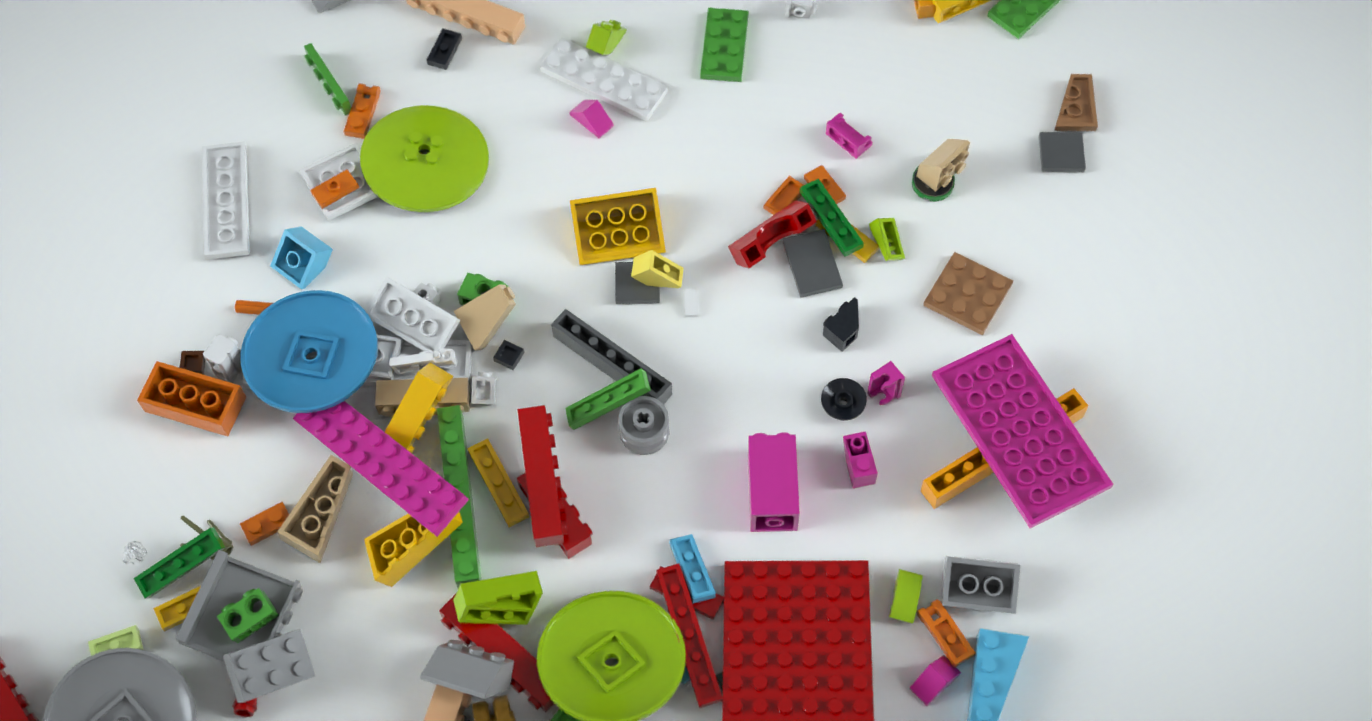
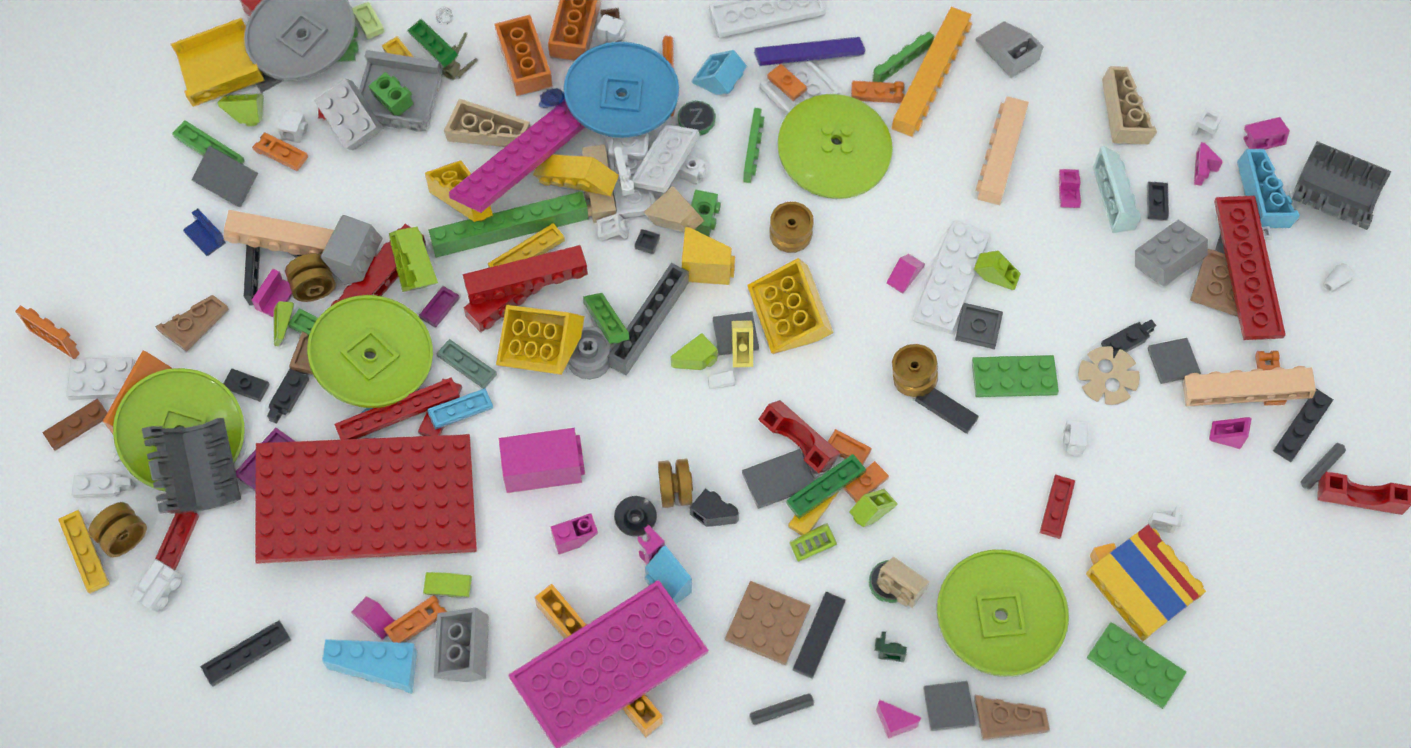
camera: 80 degrees right, 0 degrees up
(224, 460) = (523, 55): none -> orange brick
(265, 523) = (474, 93): orange plate -> none
(298, 163) = (809, 51): none -> dark purple tile
(299, 432) = (551, 98): none -> clear blue piece
(352, 55) = (931, 72): none -> light orange brick
(356, 285) = (697, 116): none -> black tile
(405, 235) = (752, 150): none -> bright green plate
(444, 49) = (955, 142): black plate -> none
(522, 208) = (791, 227): none -> pearl gold wheel
(546, 293) = (707, 259): none -> yellow slope
(554, 587) = (439, 306): none -> magenta tile
(625, 470) = (538, 339): none -> yellow slope
(632, 560) = (466, 364): none -> sand green tile
(659, 320) = (695, 355): none -> lime slope
(664, 64) = (979, 325): none -> dark grey tile
(712, 120) = (915, 370): none -> pearl gold wheel
(752, 106) = (948, 410): none -> black tile
(815, 352) = (674, 483): none -> pearl gold wheel
(847, 136) = (928, 497): dark pink hinge -> none
(857, 182) = (872, 507): none -> lime slope
(867, 33) = (1057, 506): none -> red tile
(918, 370) = (670, 574): none -> medium azure slope
(984, 66) = (1010, 584): none -> lime dish
(984, 249) = (819, 635): none -> black tile
(1003, 194) = (891, 651): none -> dark green bracket
(1059, 291) = (781, 709): none -> dark grey axle
(1078, 196) = (896, 719): none -> dark pink slope

